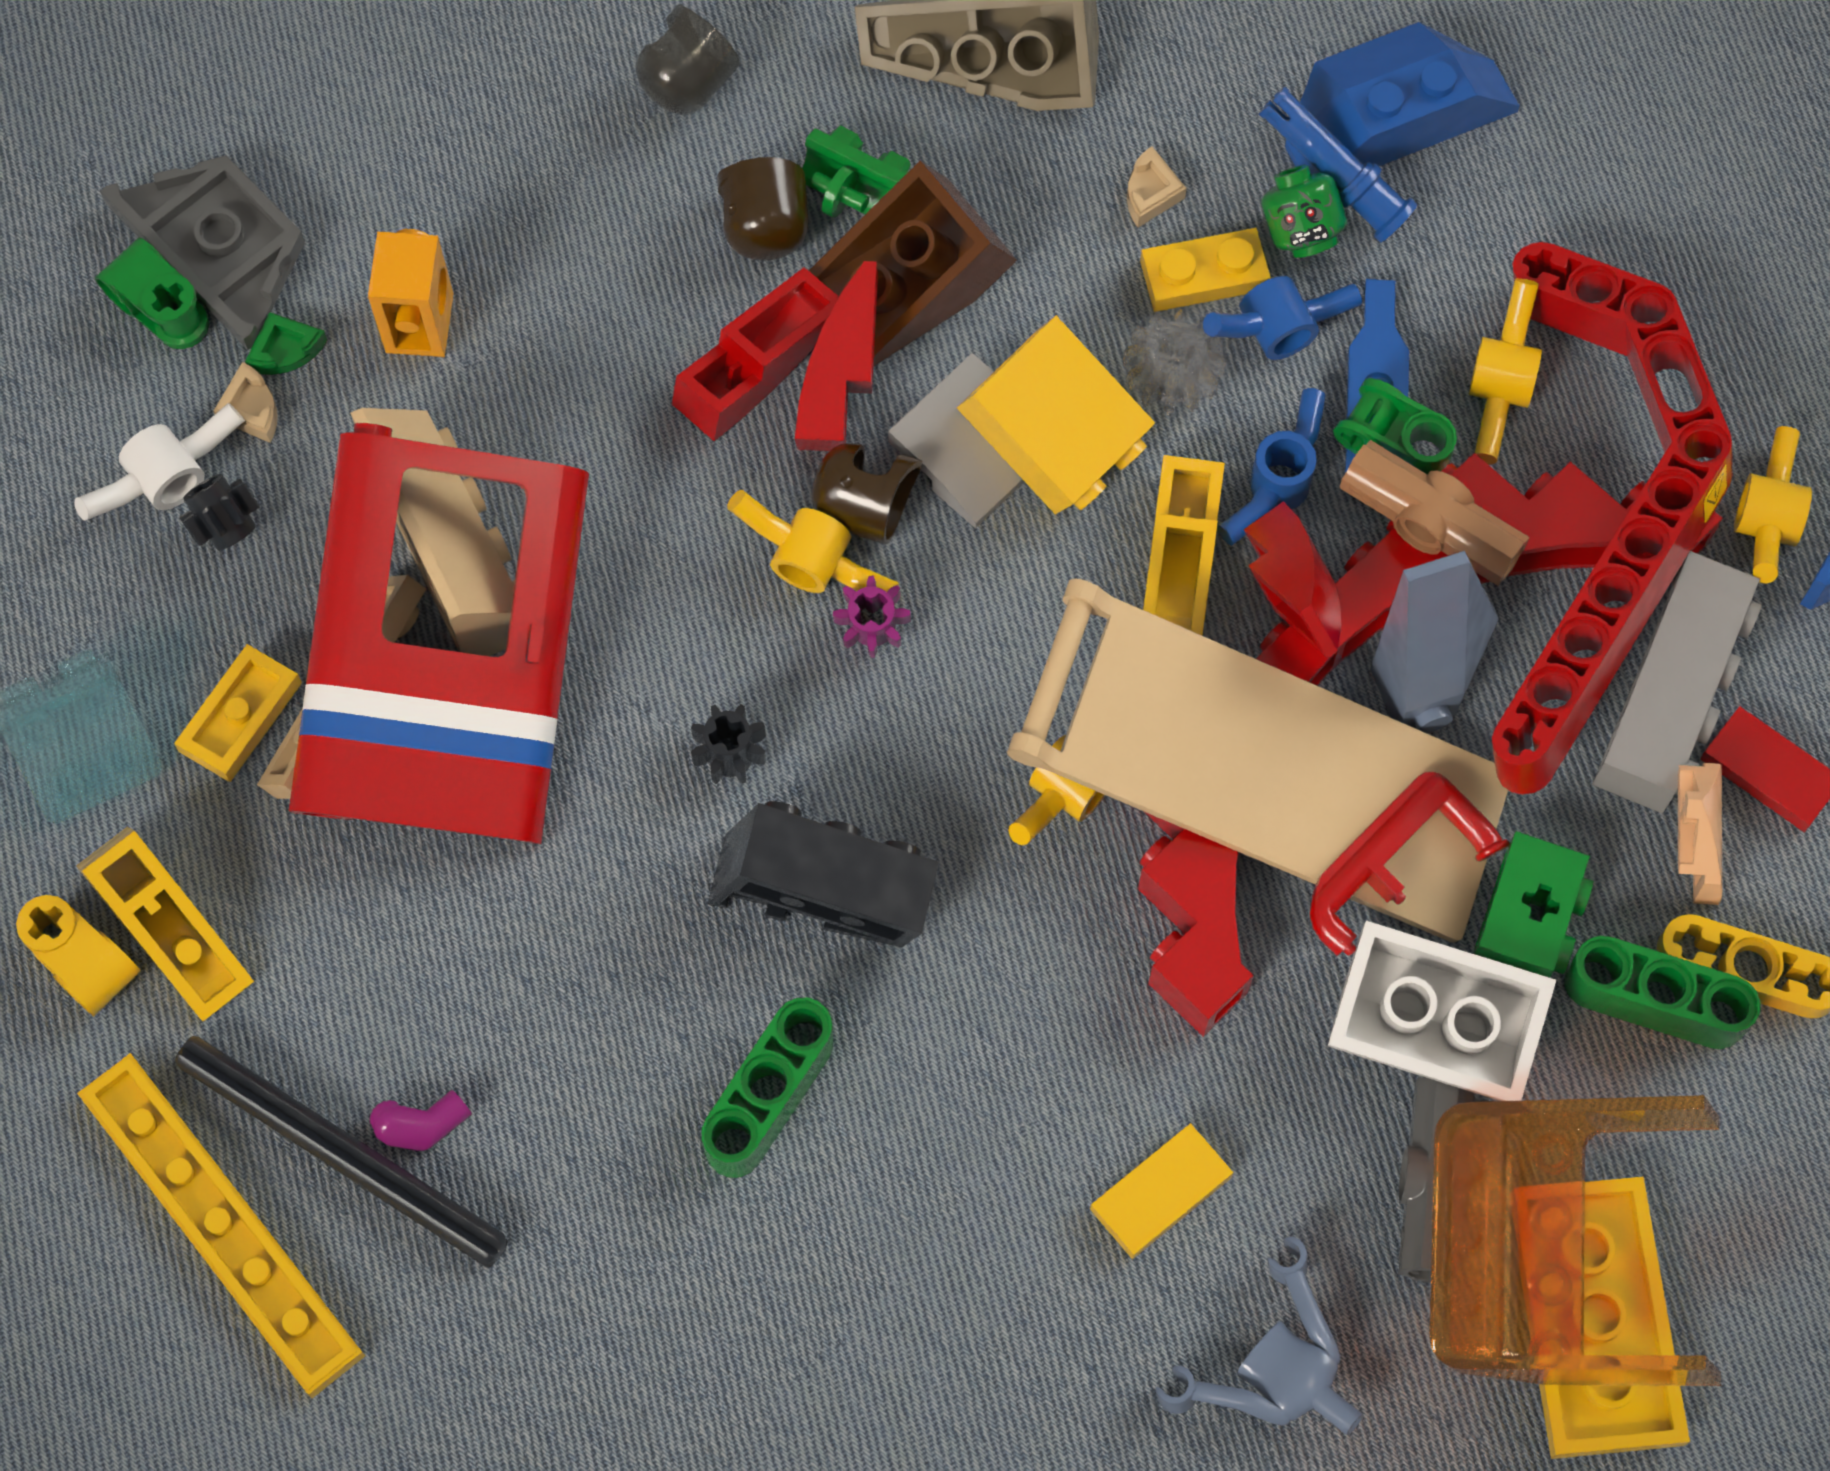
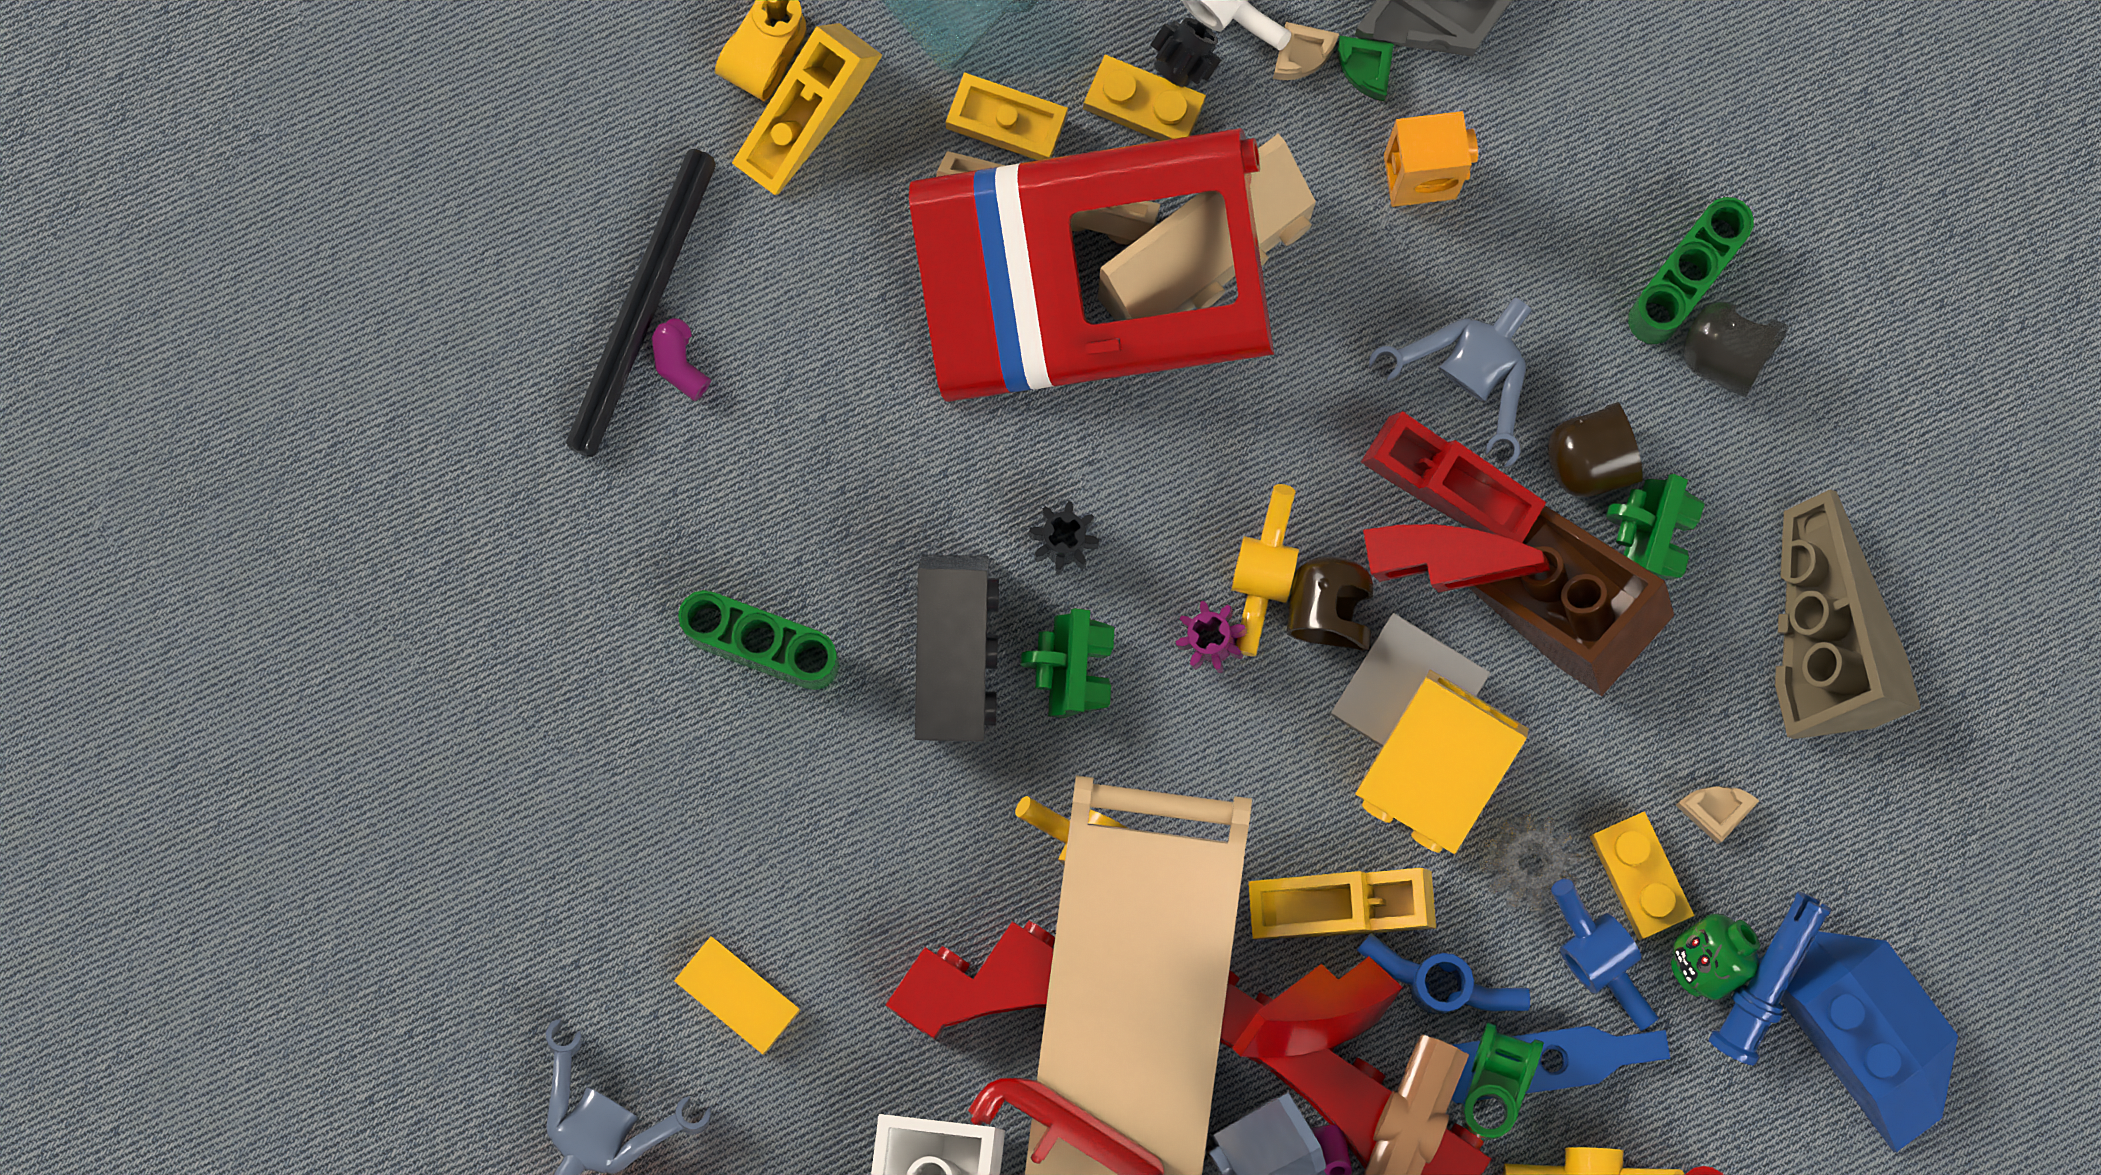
camera: 75 degrees right, 10 degrees up
(221, 1226) = (563, 223): yellow tile -> none
(259, 572) = (1143, 101): none -> yellow plate
(586, 64) = (1701, 248): none -> green beam
(642, 305) = (1477, 363): none -> sand blue piece
(869, 766) = (1063, 663): none -> green hips

